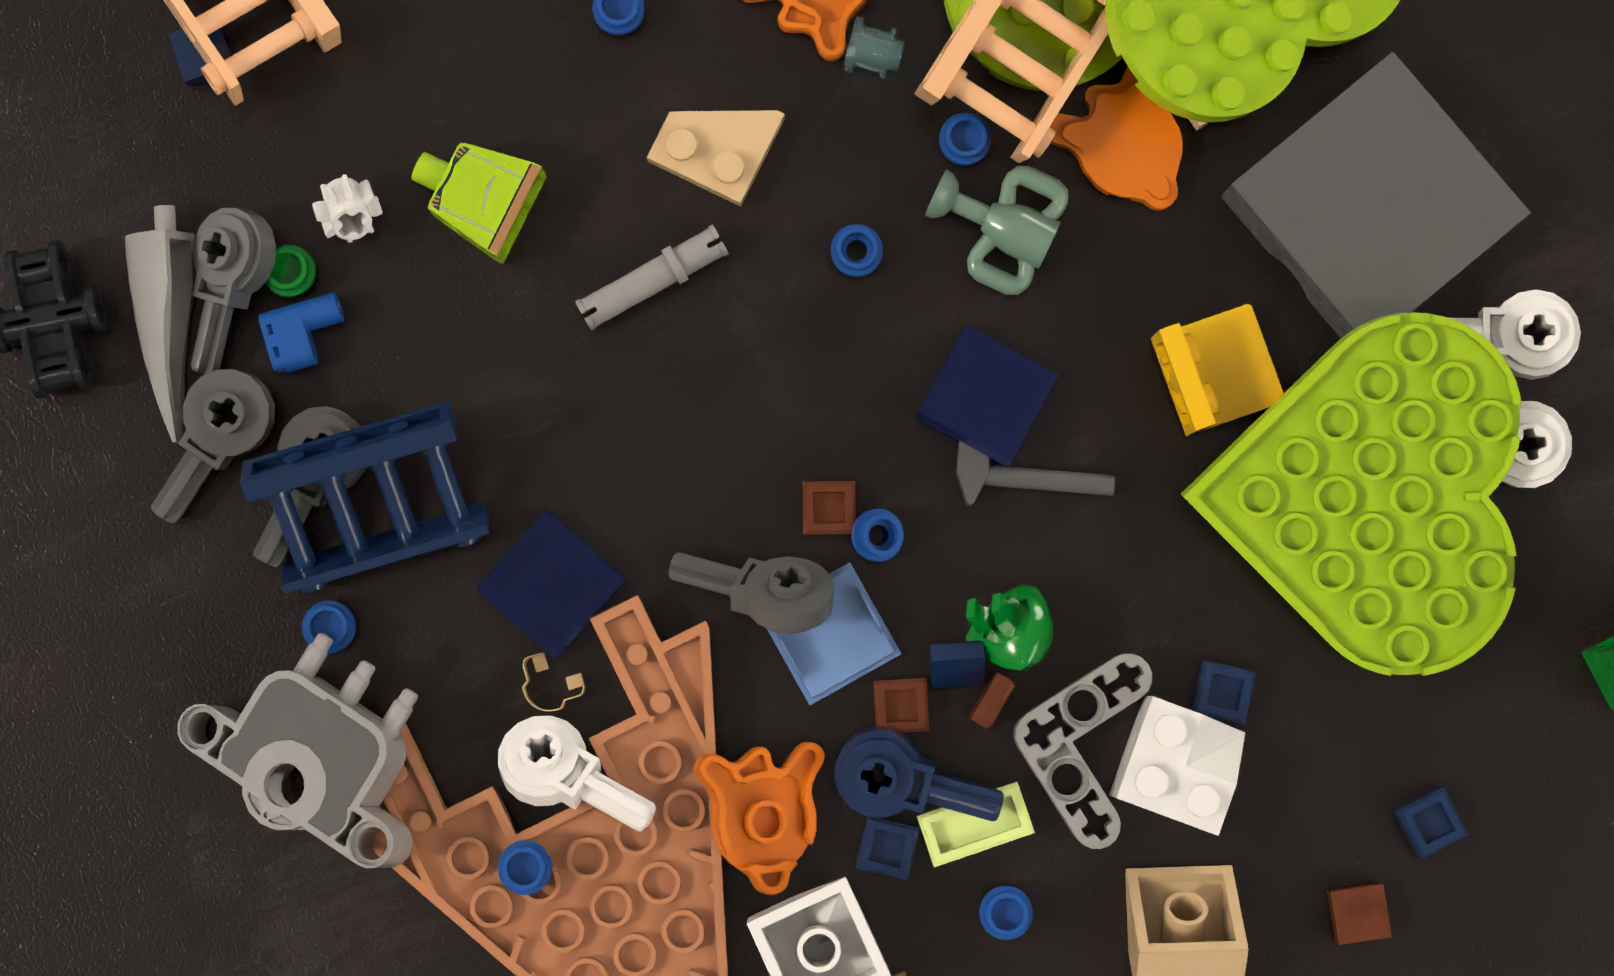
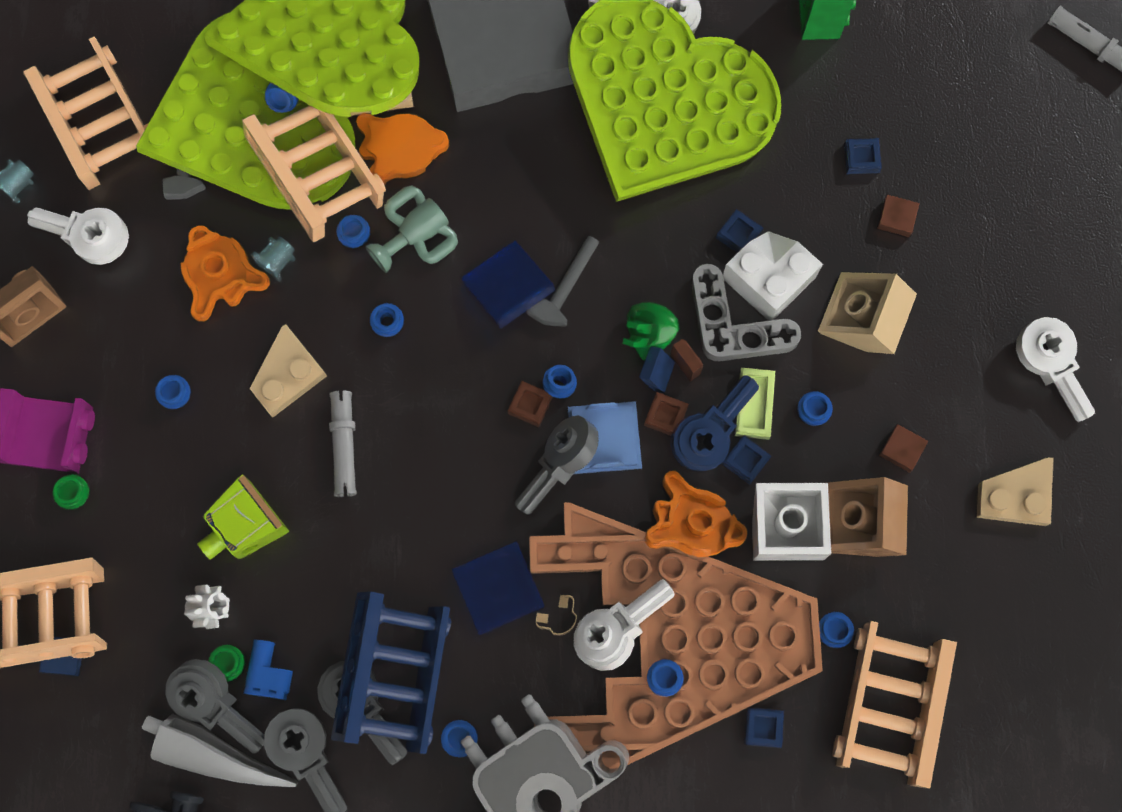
camera: 65 degrees left, 10 degrees down
(1217, 369) = (554, 154): yellow bracket -> none

